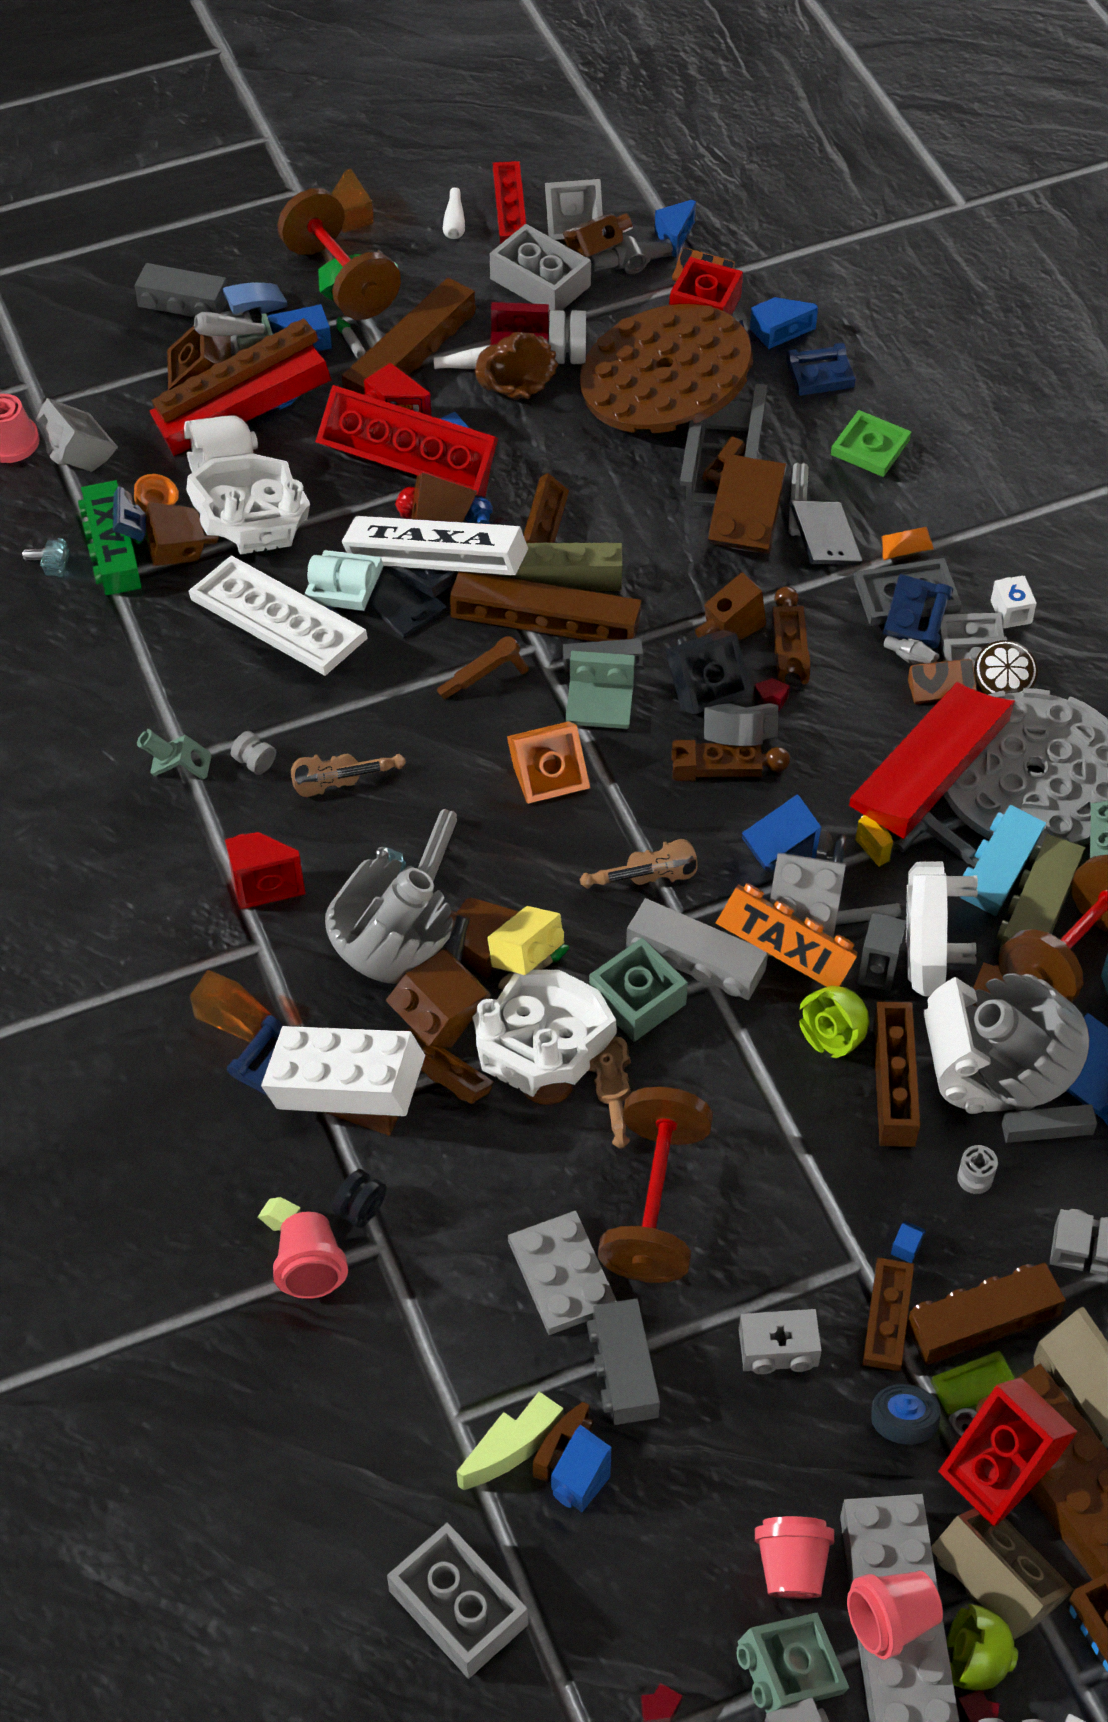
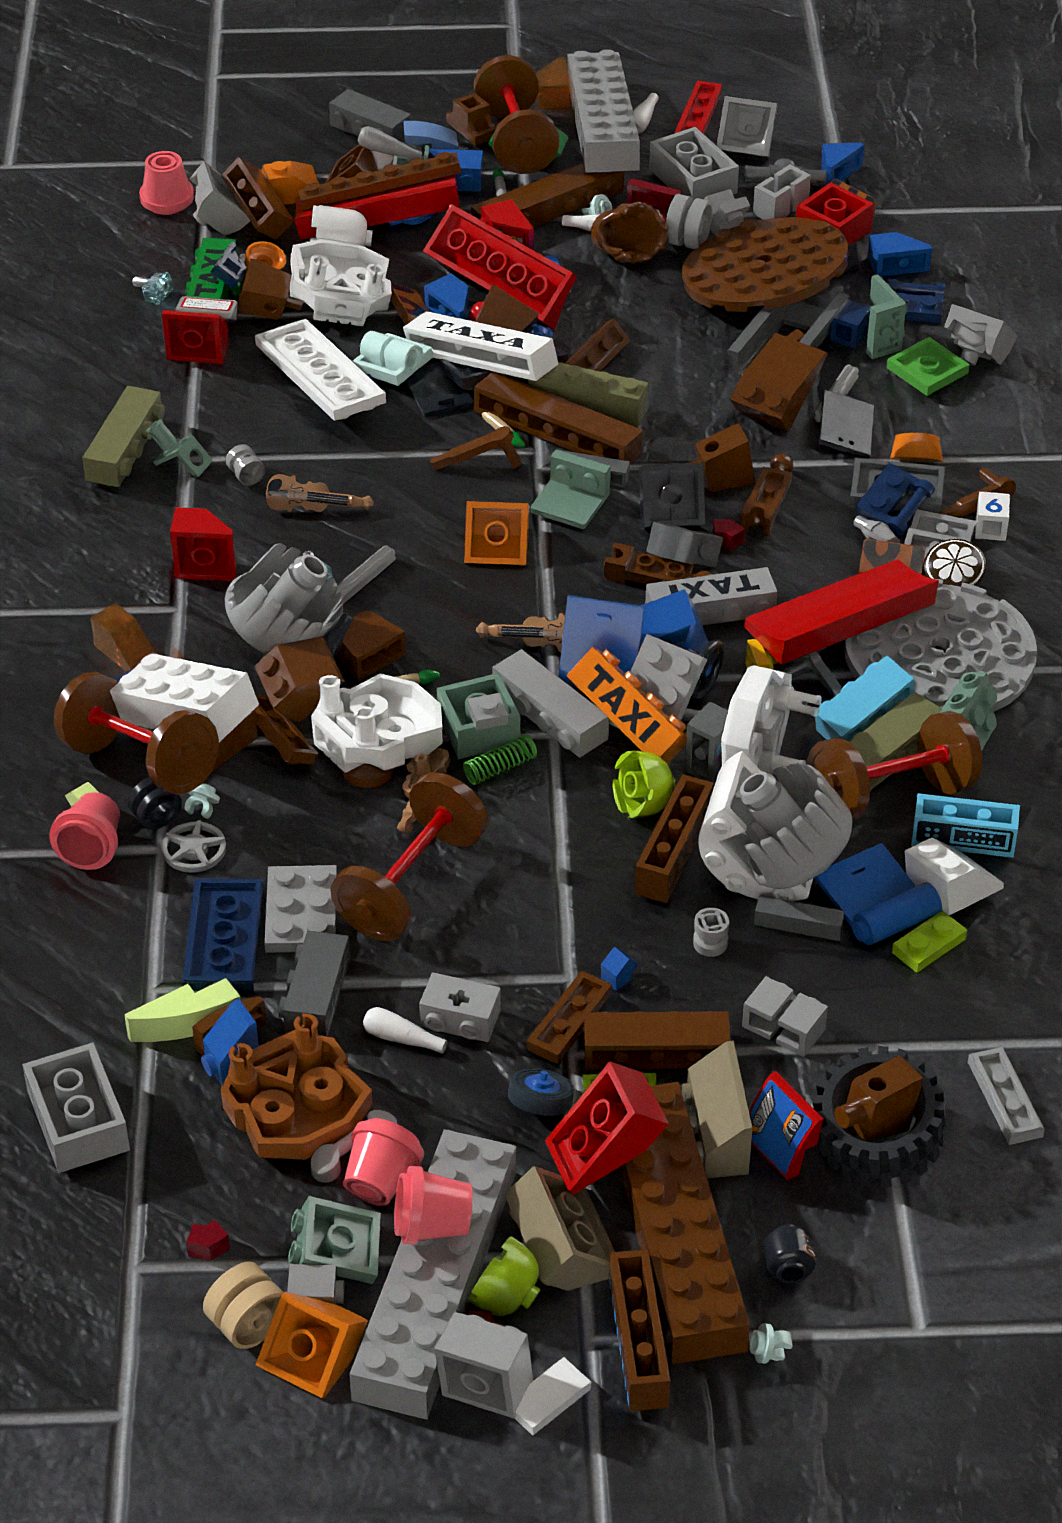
camera: 20 degrees right, 10 degrees down
(110, 755) = (122, 436): none -> olive brick
(115, 423) = (257, 198): none -> reddish brown brick
(128, 612) = (195, 336): none -> red slope
(129, 575) = (225, 308): none -> slope
(131, 391) = (288, 178): none -> orange slope
(289, 266) = (472, 118): none -> reddish brown brick
(329, 510) = (407, 303): none -> dark orange slope
(367, 493) = (448, 297): none -> blue slope
(379, 1144) = (178, 751): none -> reddish brown piece
(401, 1170) = (202, 795): none -> light aqua plate
(417, 1233) = (193, 846): none -> light grey wheel
(424, 228) = (603, 112): none -> light grey brick
(464, 340) = (598, 205): none -> light aqua plate
(488, 628) = (496, 423): none -> tan piece
(499, 1330) = (223, 933): none -> dark blue tile
(526, 940) = (399, 653): light yellow brick -> none
(588, 237) = (746, 149): reddish brown torso -> none
(598, 315) = (727, 210): none -> light grey brick
(641, 279) = (781, 194): none -> light grey piece
(656, 989) = (487, 711): none -> light grey plate
(663, 1050) = (469, 764): none -> bright green piece
(695, 1524) = (286, 1079): none -> dark orange brick
(721, 863) = (590, 625): none -> blue door
(724, 1385) = (395, 1028): none -> white piece
(733, 1565) = (326, 1159): none -> light grey bar
(777, 414) = (850, 324): none -> dark blue brick
(804, 772) = (723, 595): none -> light grey brick
(812, 398) = (885, 320): none -> sand green bracket
(908, 398) = (979, 335): none -> light grey brick
(1004, 568) = (968, 504): none -> reddish brown piece

